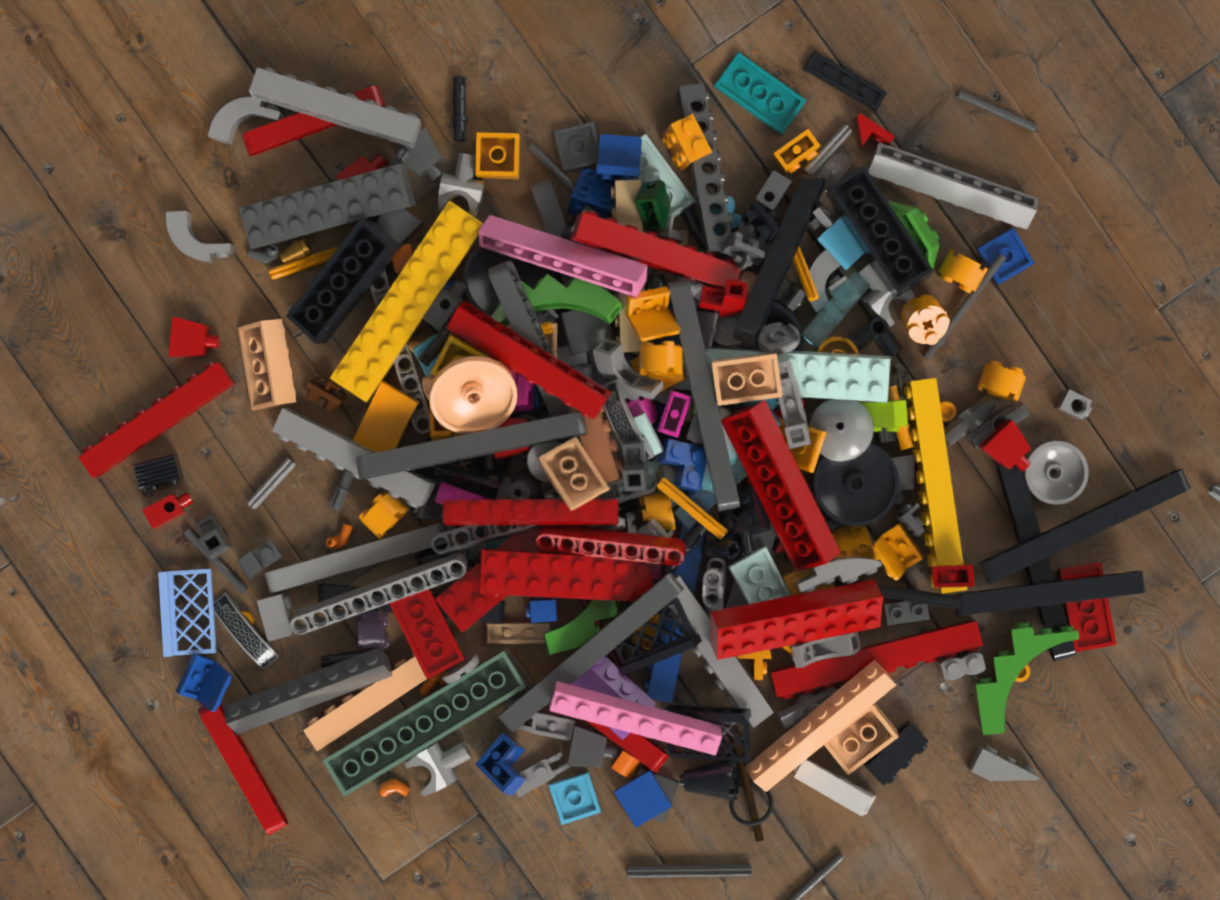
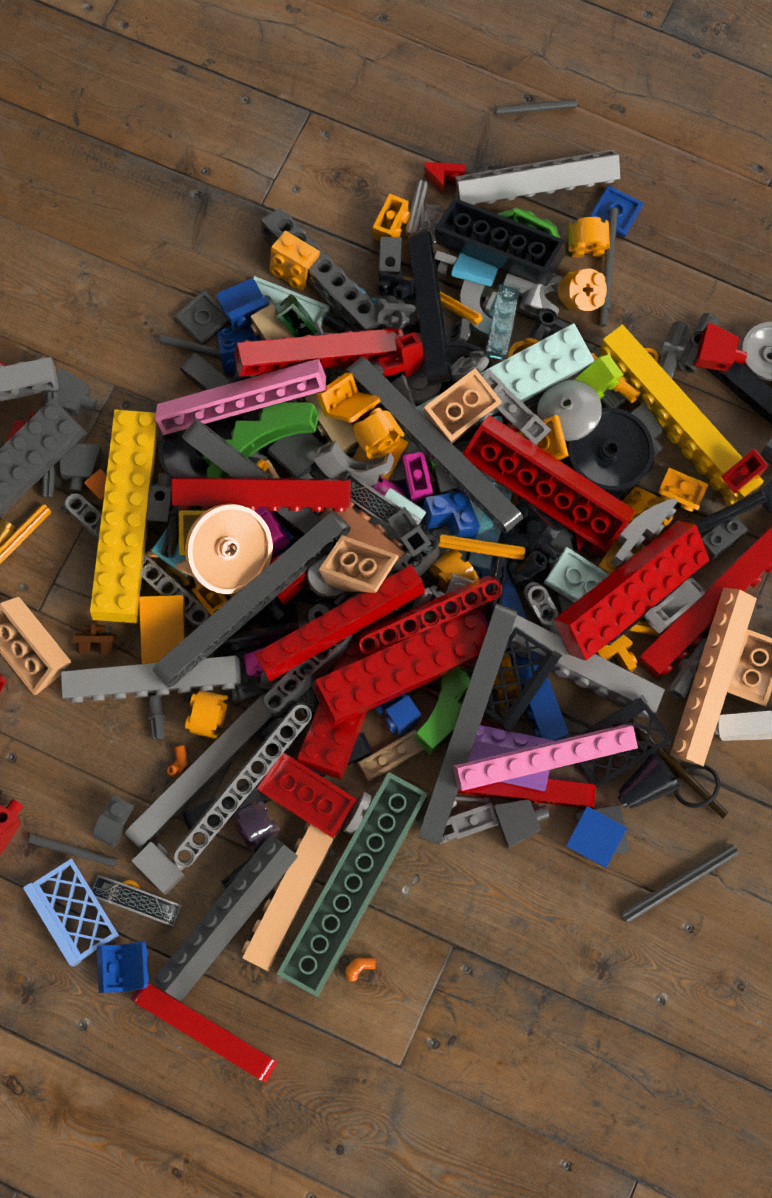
camera: 30 degrees left, 15 degrees down
(213, 537) = (58, 826): dark grey brick -> none
(271, 483) = (87, 749): light grey axle -> none
(343, 280) = (57, 528): black brick -> none
(429, 683) = (337, 845): orange arm -> none
(439, 764) = (390, 917): light grey connector -> none
(459, 109) = (86, 347): black pin -> none
(462, 185) = (118, 397): light grey connector -> none
(497, 155) = (137, 357): light orange brick -> none
(499, 761) = (444, 881): blue brick -> none
(540, 773) = (485, 876): light grey hinge -> none
(574, 797) = (533, 877): medium azure tile -> none
(626, 764) = (562, 816): orange brick -> none
(759, 93) = (332, 196): teal tile -> none
(845, 81) = (397, 150): black tile -> none
(911, 523) = (676, 457): dark grey bracket -> none
(1002, 381) = (679, 303): light orange brick -> none
(1066, 400) = (746, 299): light grey brick -> none

